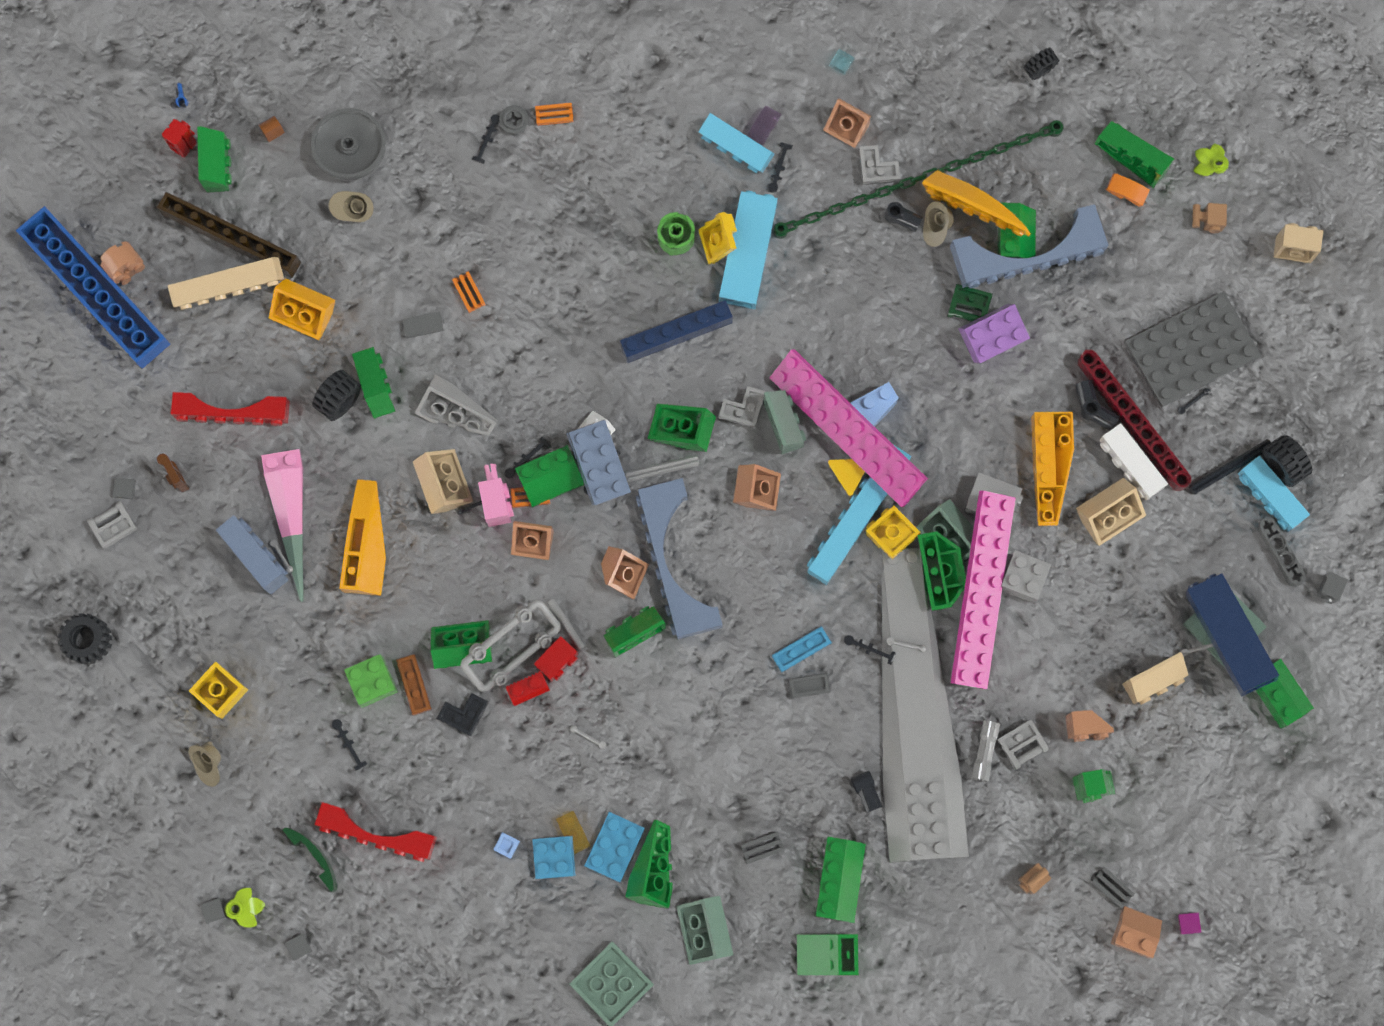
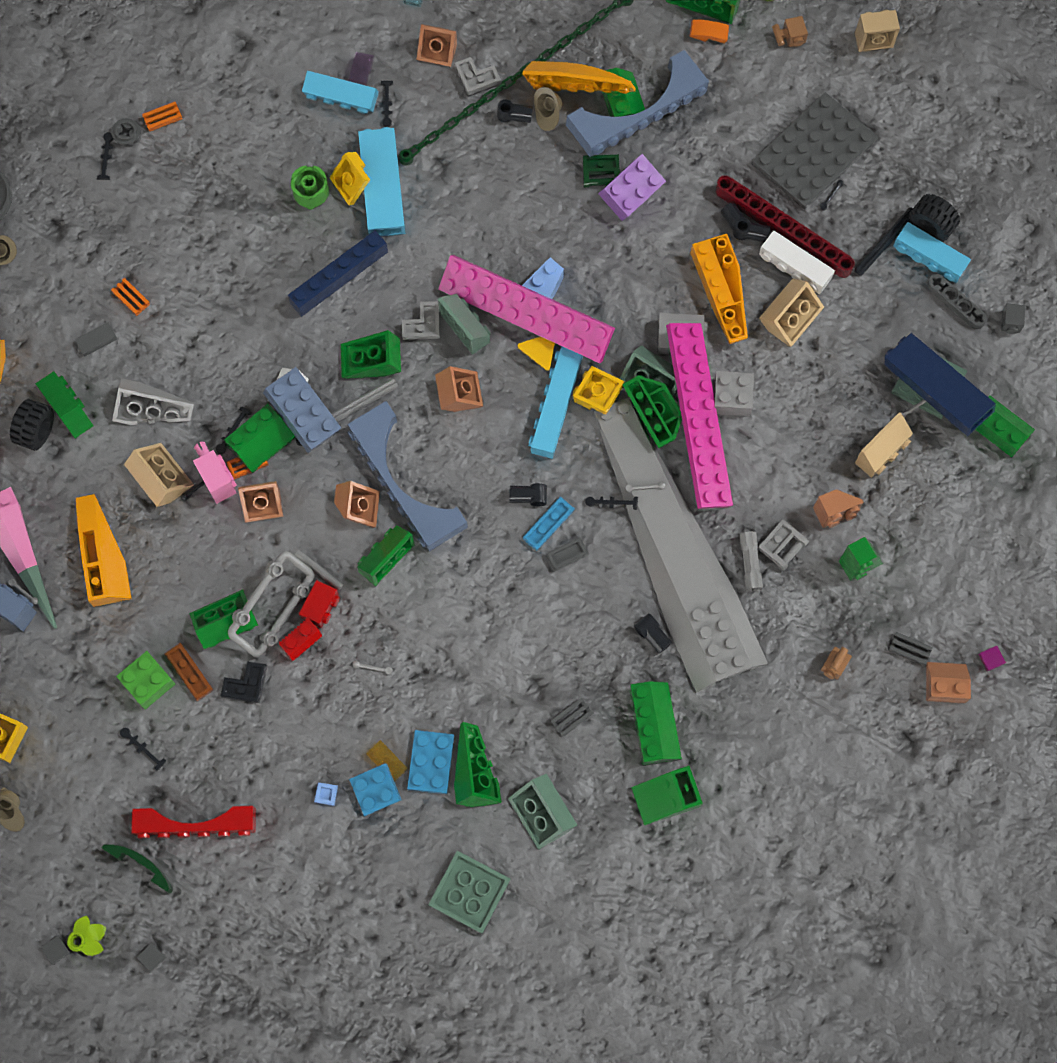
camera: 20 degrees left, 5 degrees down
(795, 616) = (534, 494): none -> black piece

